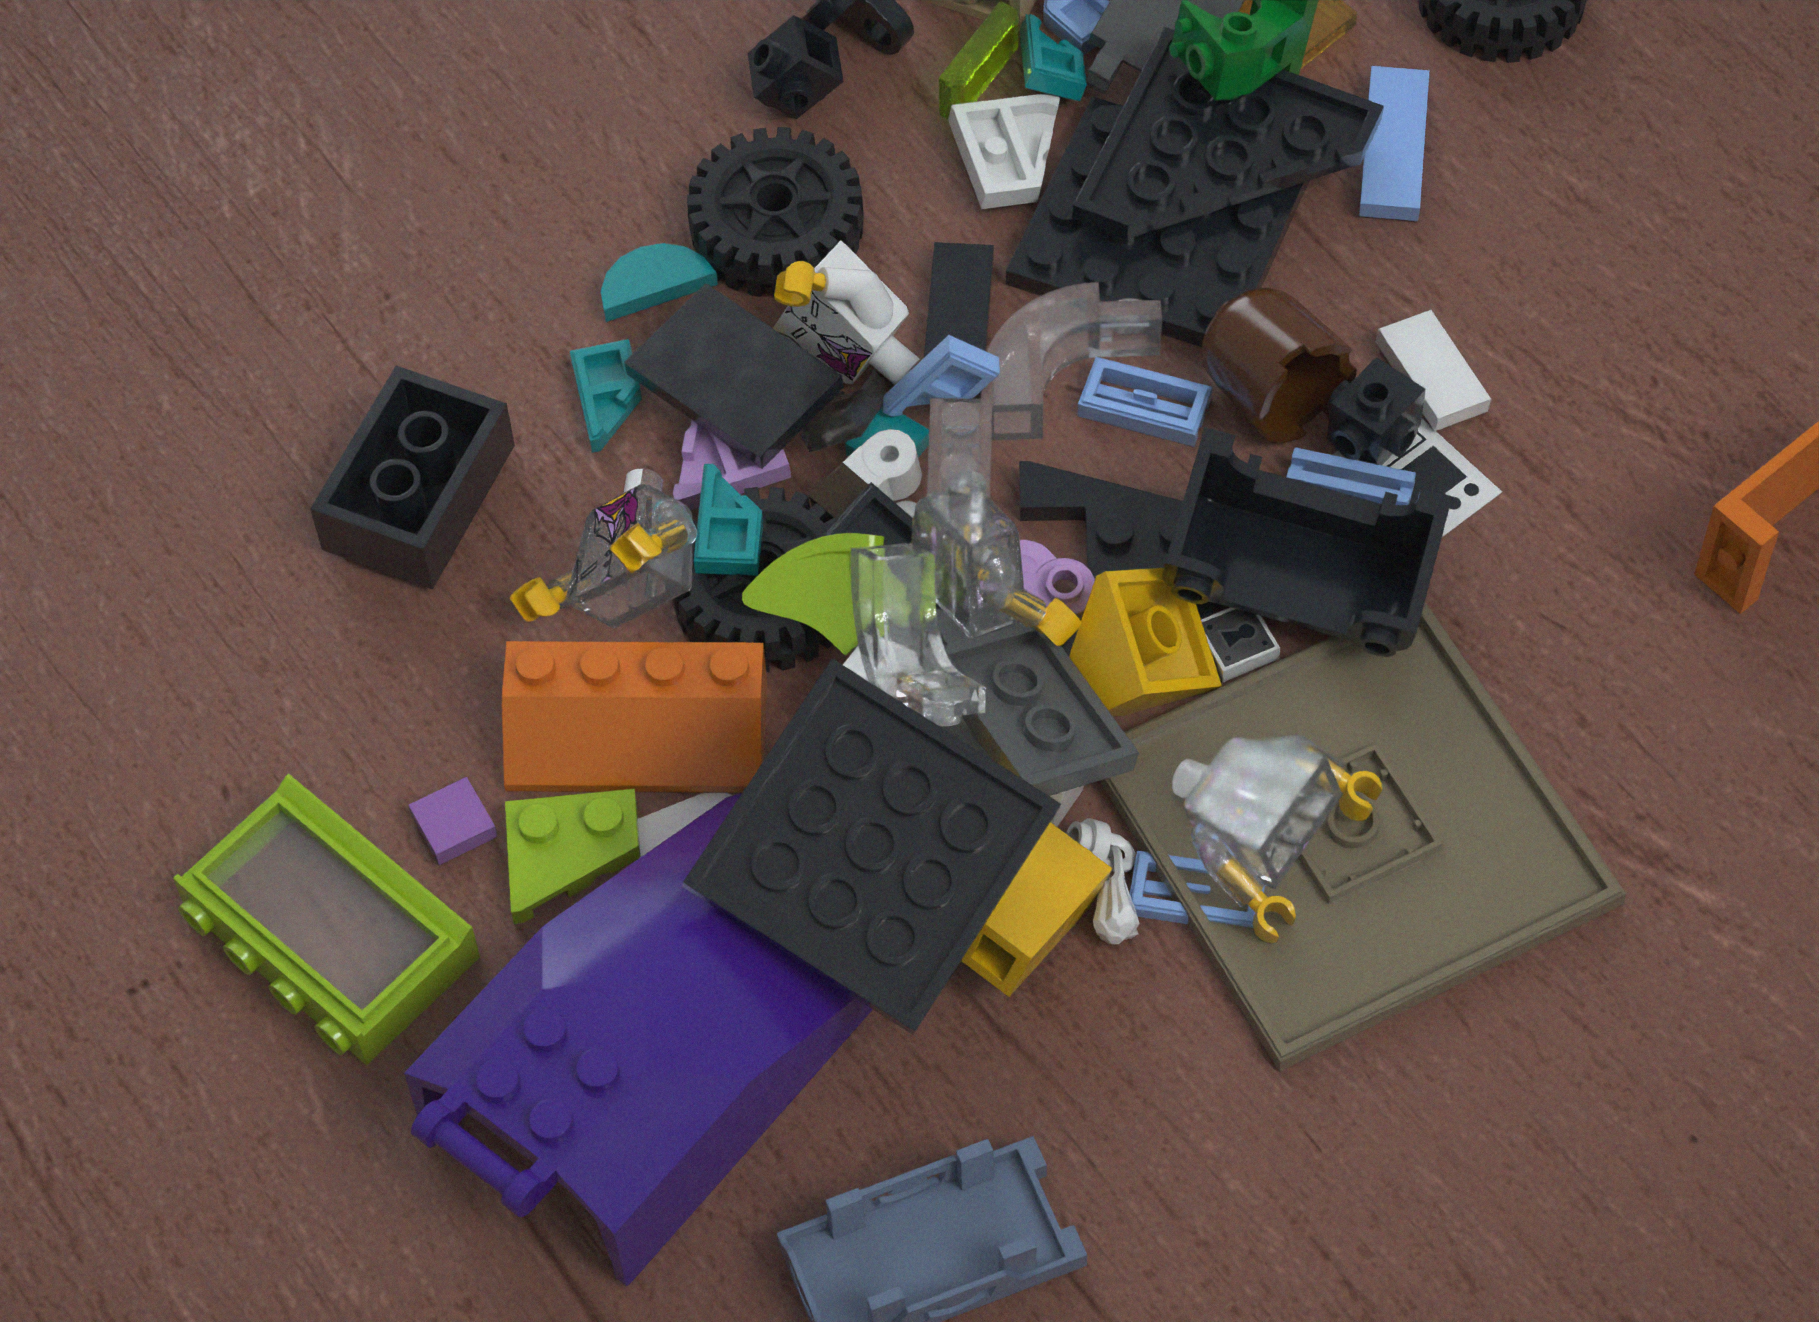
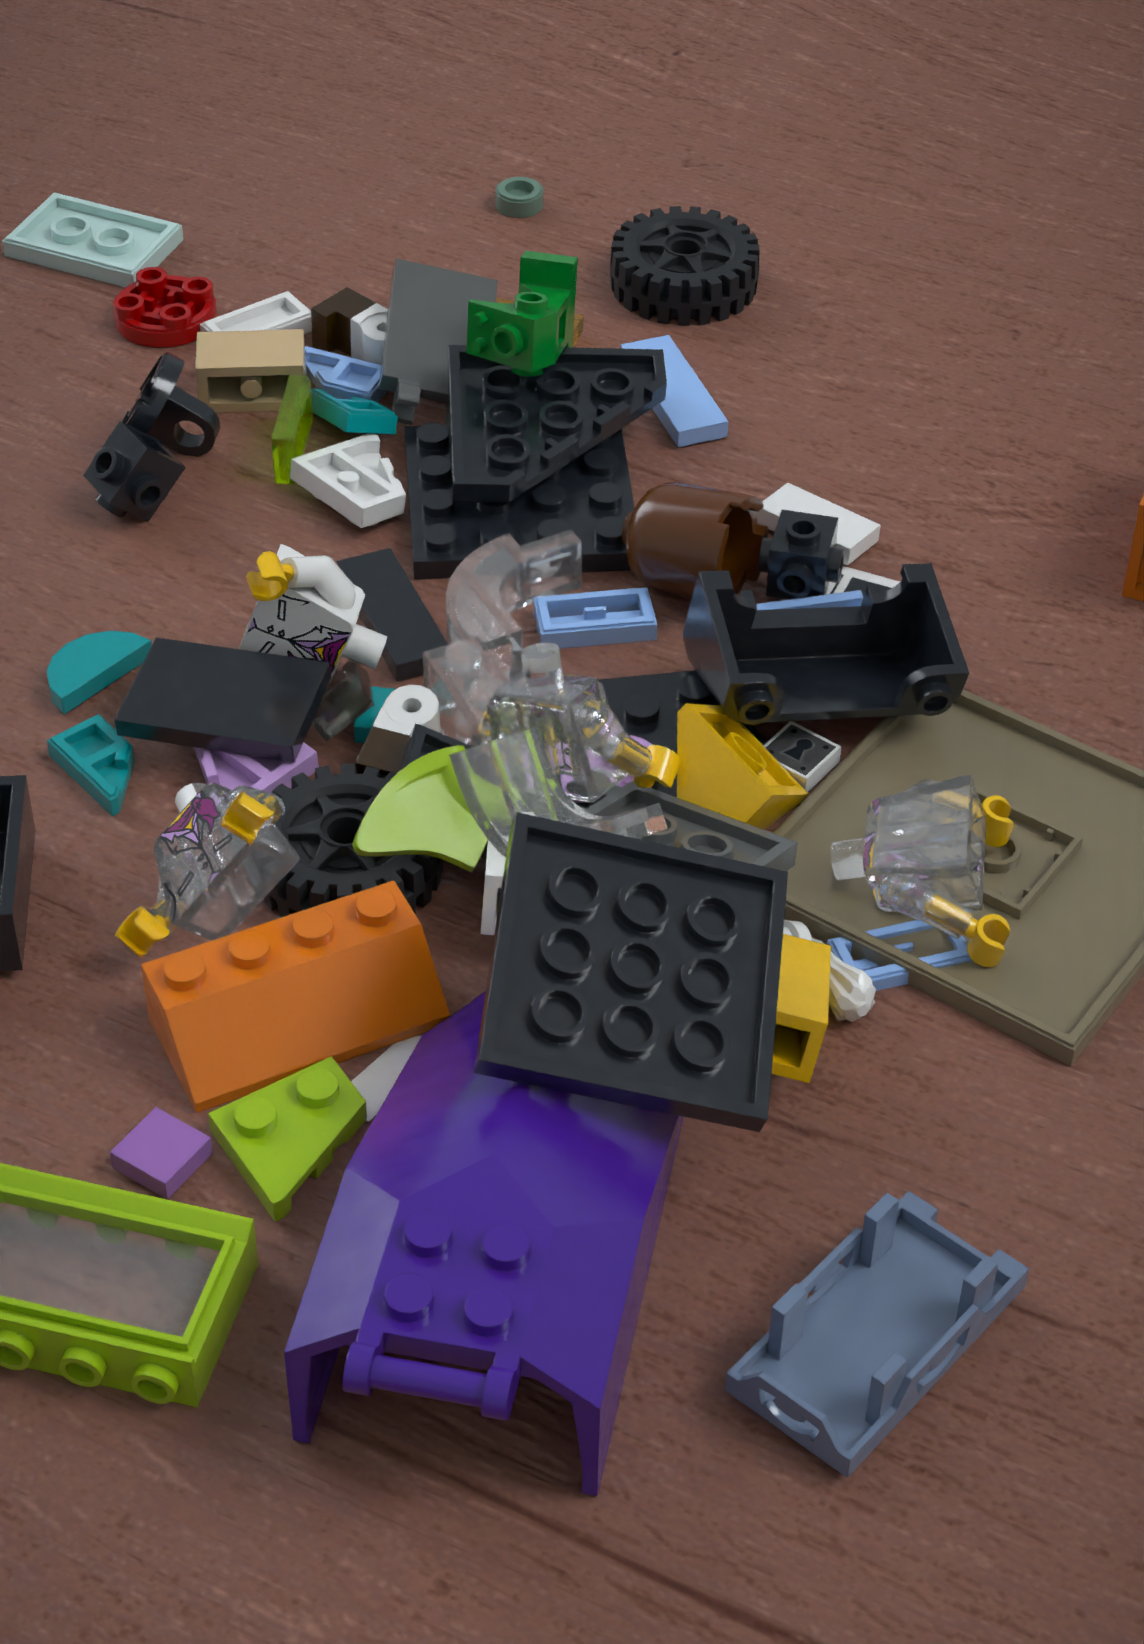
camera: 30 degrees left, 15 degrees down
(726, 528) = (311, 809): teal tile -> none
(772, 206) = (176, 577): black wheel -> none
(948, 371) = (429, 623): light blue tile -> none

